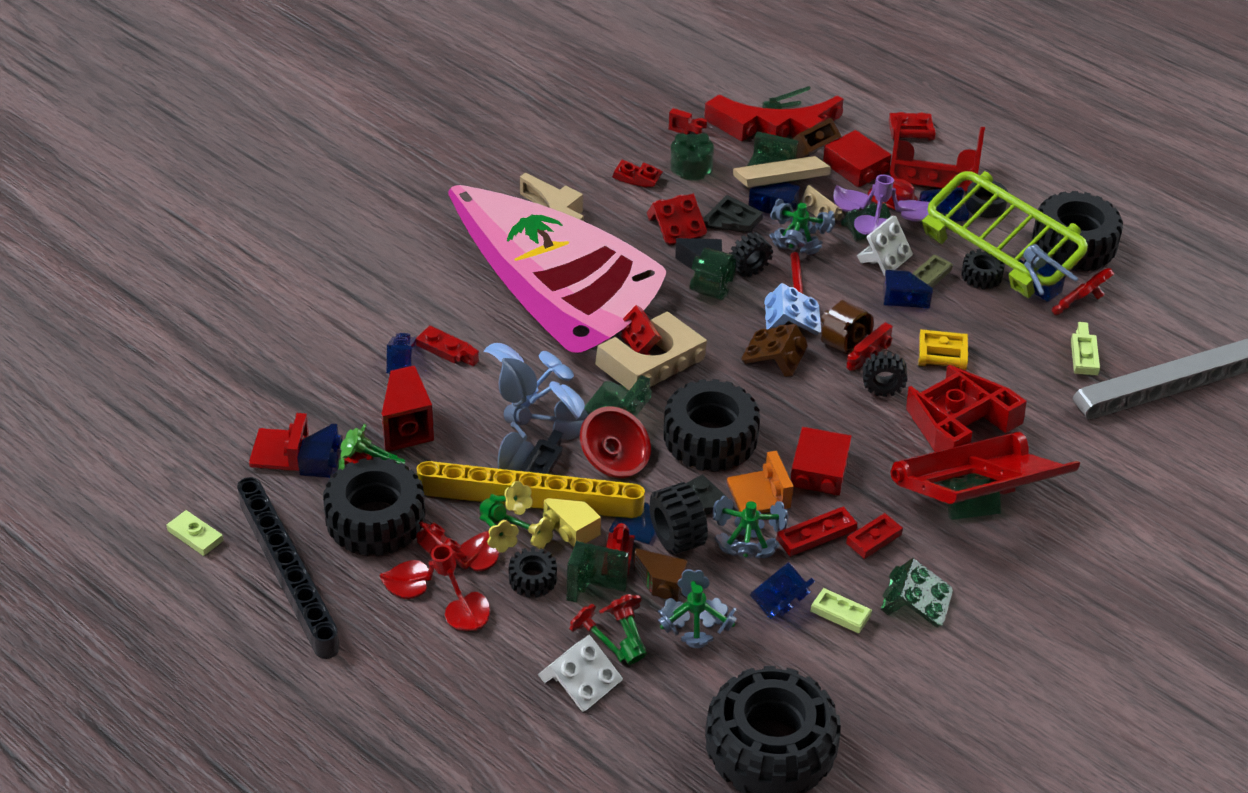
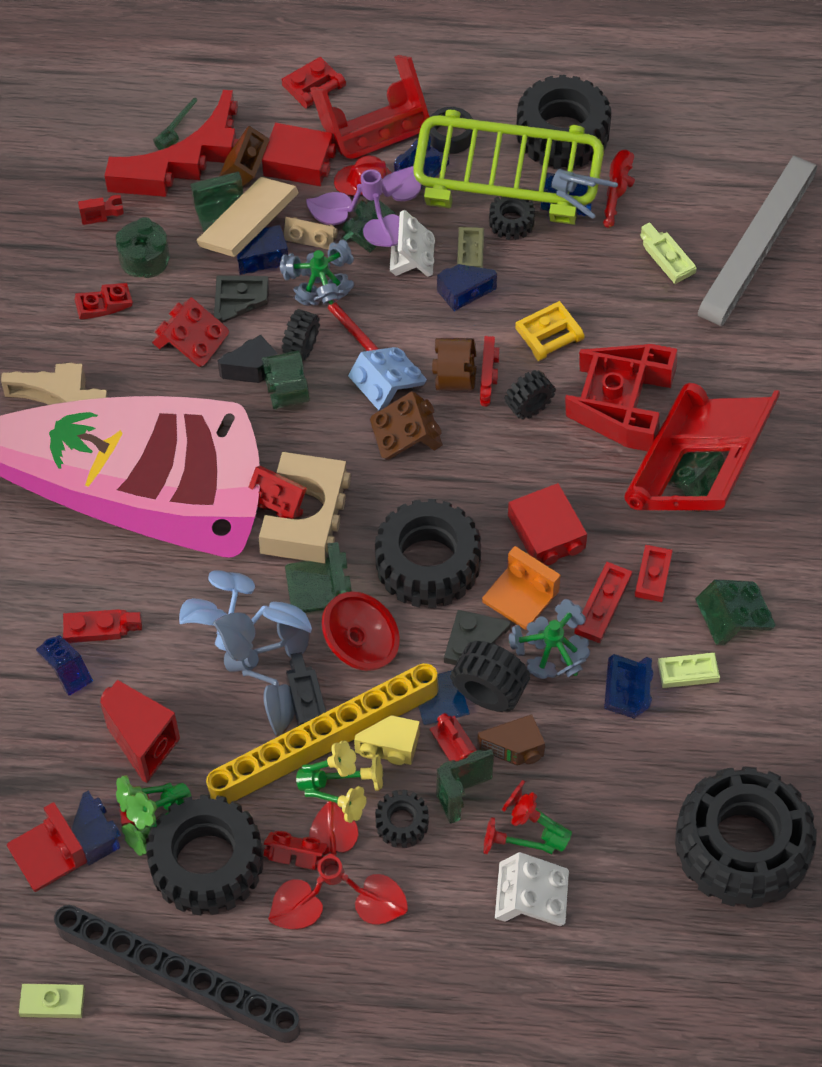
camera: 35 degrees left, 15 degrees up
(709, 611) = (585, 754): sand blue plant -> none

